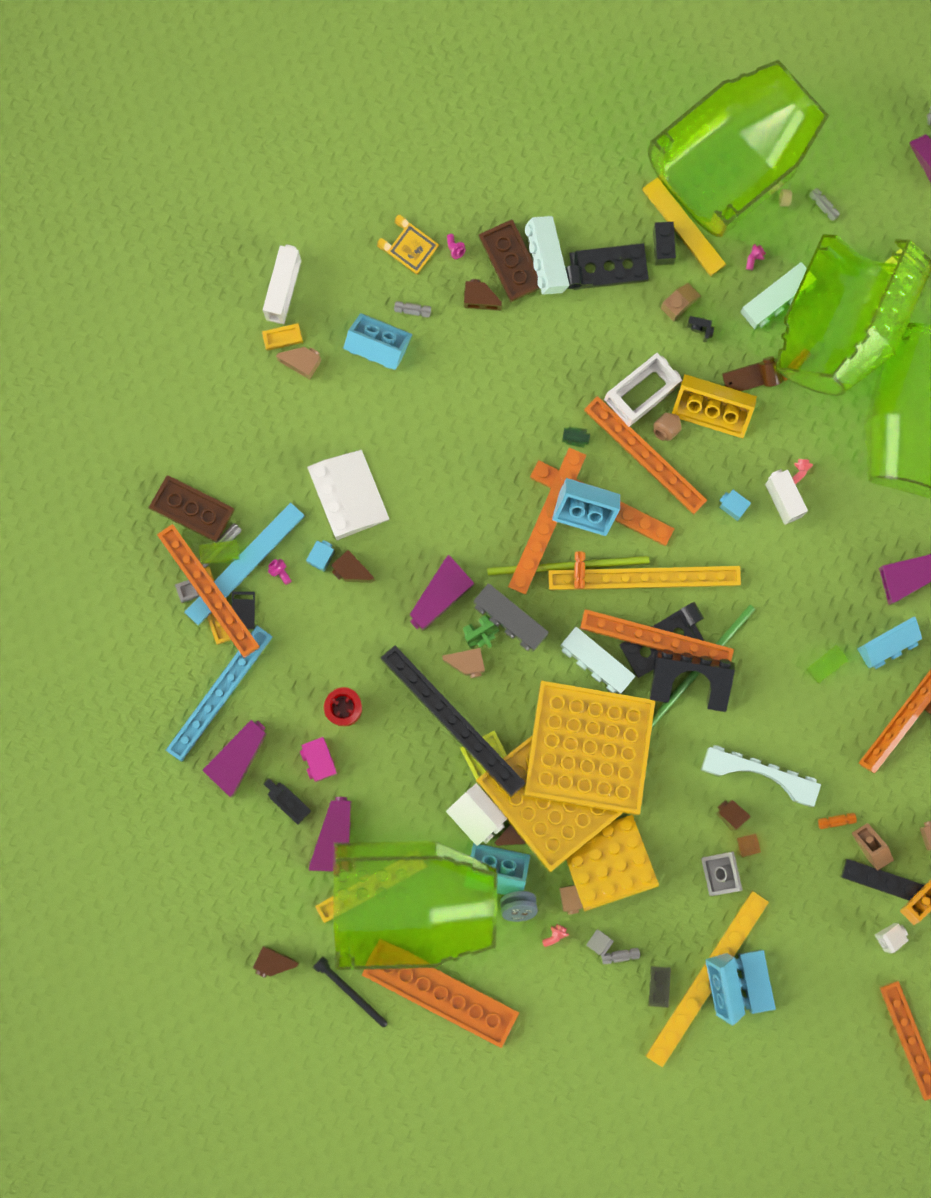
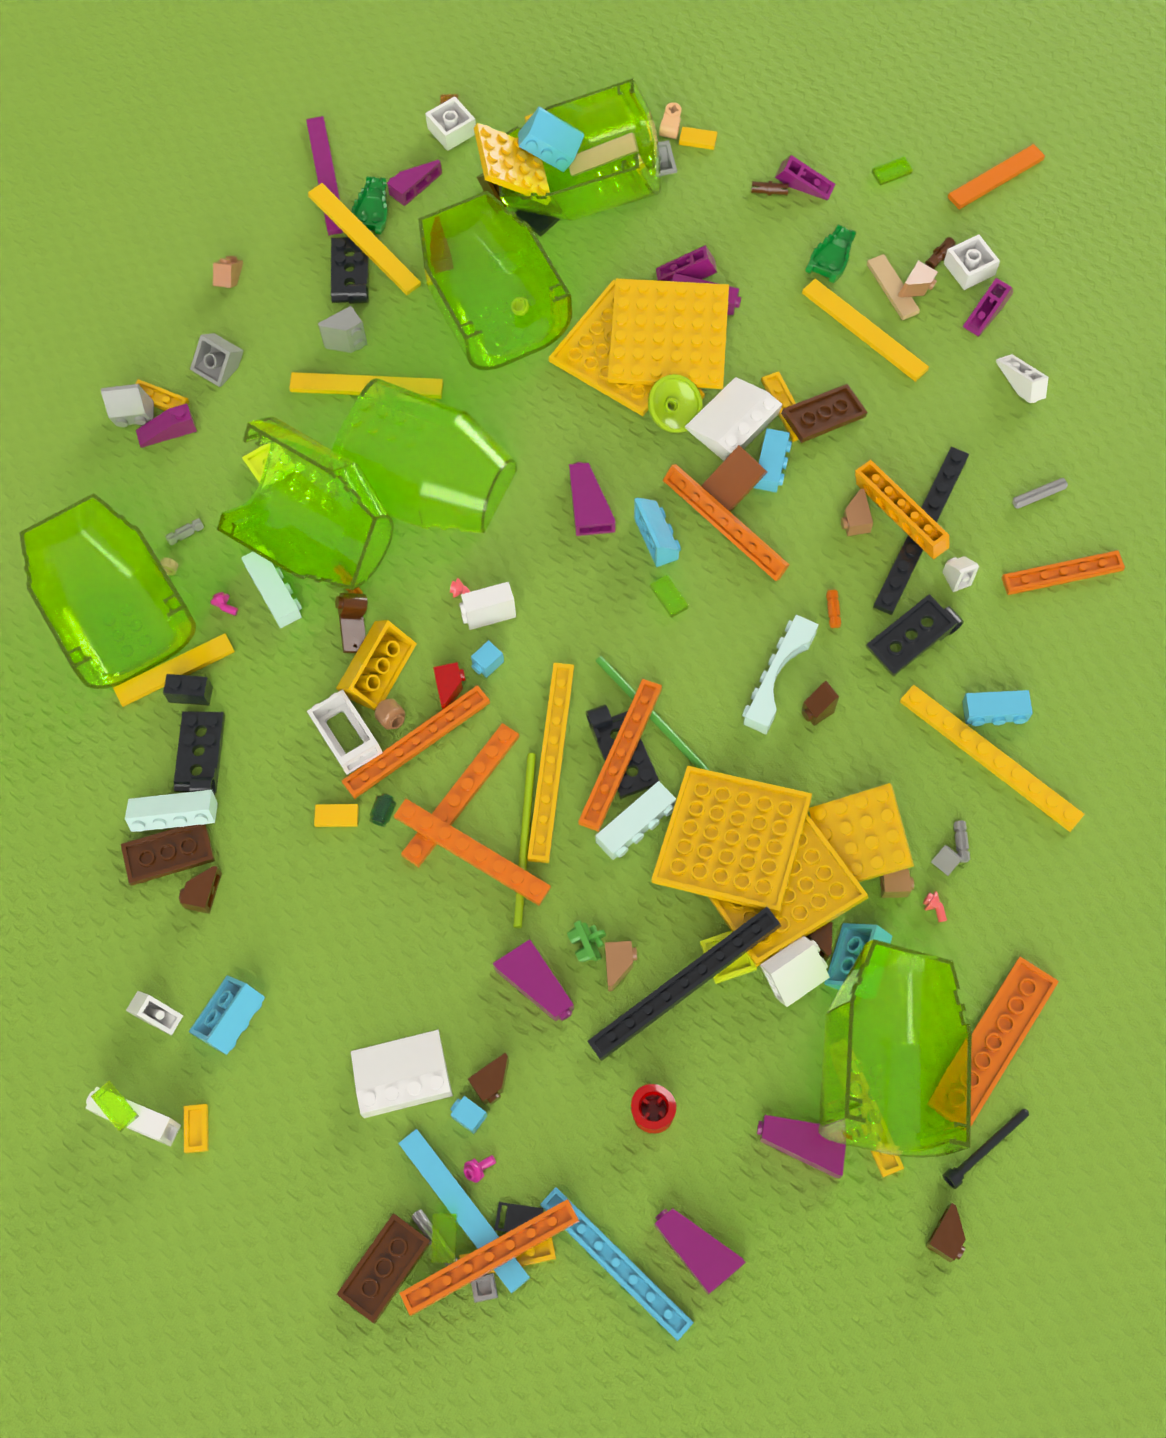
camera: 80 degrees left, 15 degrees down
(283, 268) = (114, 1106): none -> clear neon green tile
(287, 801) = (756, 1193): black hinge -> none
(301, 360) = (230, 1108): medium nougat slope -> none
(318, 759) = (711, 1148): dark pink brick -> none
(370, 281) = (154, 1012): none -> white slope
(411, 247) = (124, 963): yellow flag -> none
(413, 309) = (197, 970): light grey axle -> none
(457, 249) = (139, 910): dark pink plate -> none
(510, 617) = (575, 902): dark grey slope -> none
(518, 906) = (902, 933): head -> none
(566, 397) = (336, 815): none -> yellow tile
(579, 570) = (533, 823): orange axle -> none
(586, 507) = (464, 804): medium azure slope -> none
(659, 986) = (997, 805): clear smoke plate -> none
(671, 664) = (652, 742): black arch -> none
(680, 301) = (256, 684): medium nougat slope -> none
(699, 325) = (286, 665): black bracket -> none
(705, 474) = (449, 682): none -> red slope
(721, 873) = (880, 724): light grey slope -> none
(726, 988) = (1004, 735): medium azure slope -> none
(748, 845) = (851, 696): clear orange tile -> none
(834, 925) = (945, 623): none -> black hinge
(873, 846) = (863, 577): medium nougat slope -> none

